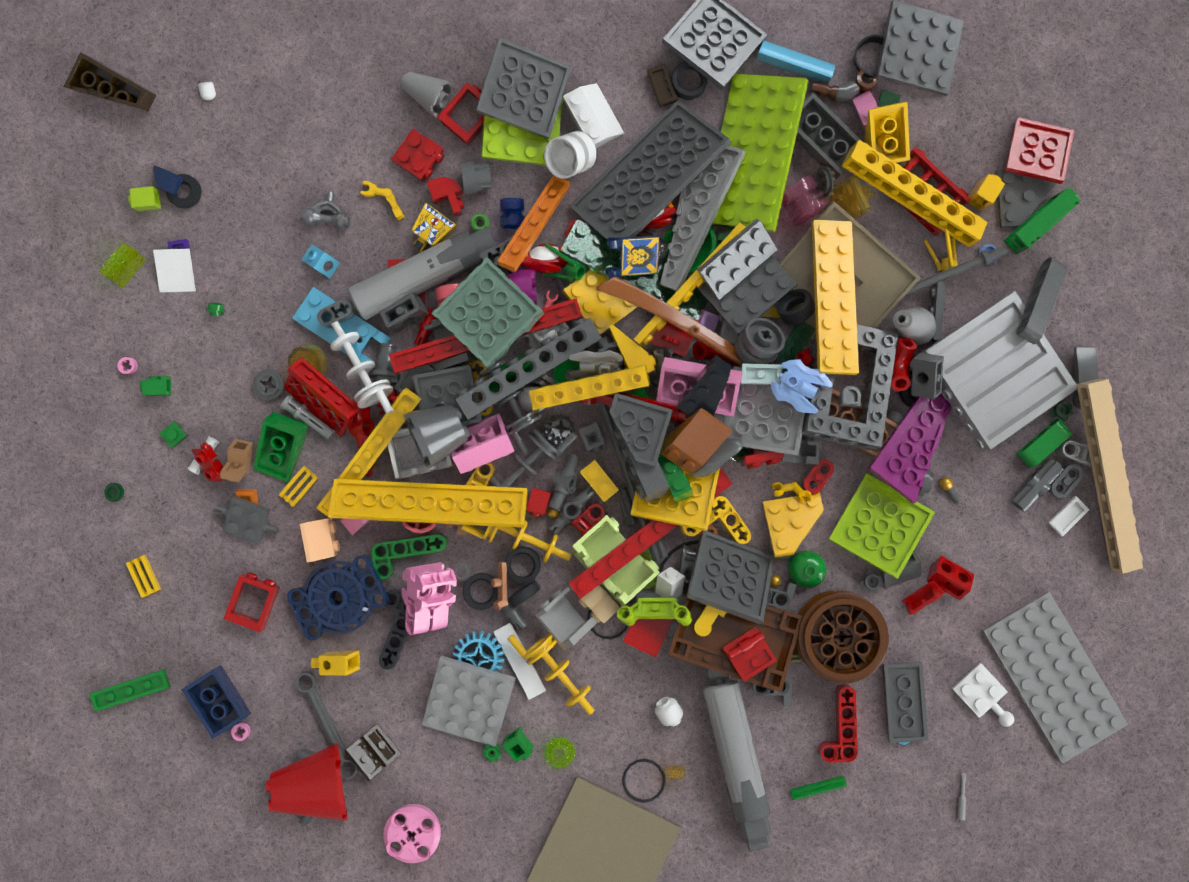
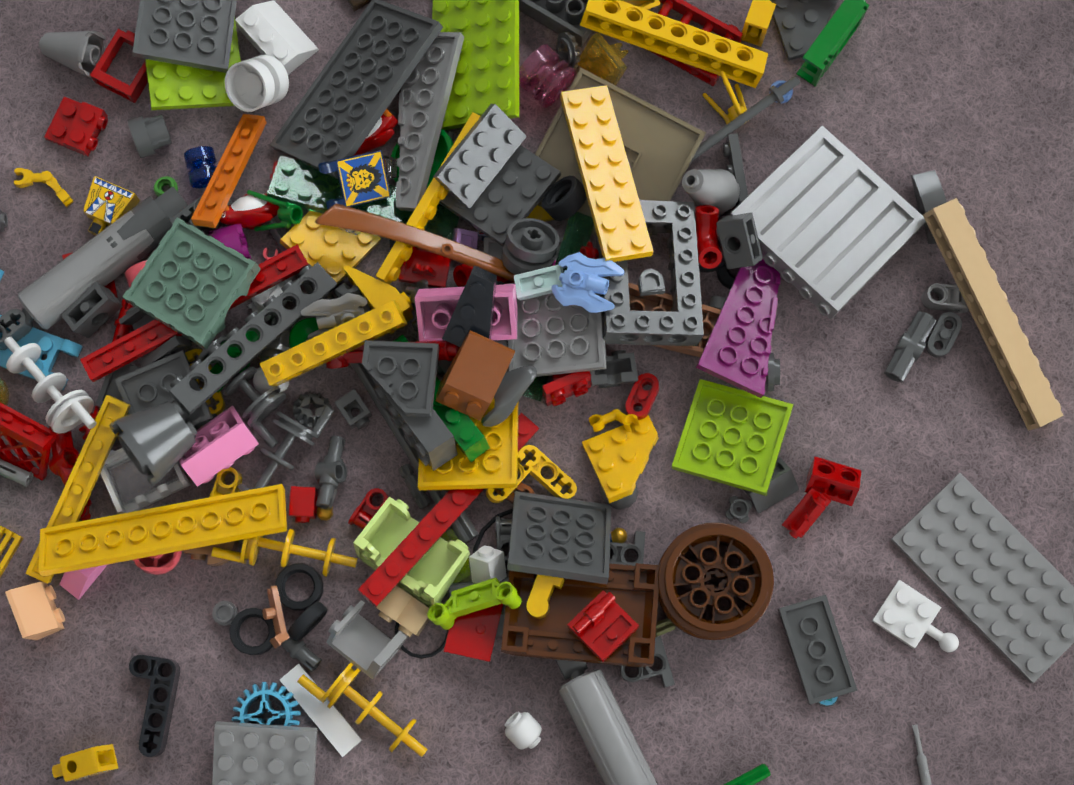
camera: 15 degrees left, 10 degrees down
(319, 597) = (51, 674): dark blue piece -> none
(384, 366) = (79, 378): dark grey piece -> none
(410, 550) = (154, 600): green beam -> none
(427, 597) = (190, 662): bright pink connector -> none
(444, 189) = (118, 156): red brick -> none
(564, 518) = (353, 492): dark grey pin -> none
(599, 480) = (373, 460): yellow brick -> none
(807, 569) = (655, 512): green cylinder -> none
(841, 723) = (744, 694): red beam -> none
(947, 484) = (801, 371): piece -> none
(1041, 300) = (855, 129): dark grey beam -> none
(1045, 443) = (905, 295): green beam -> none
(1064, 415) = (920, 247): dark green plate -> none
(1068, 516) = (958, 376): white tile -> none

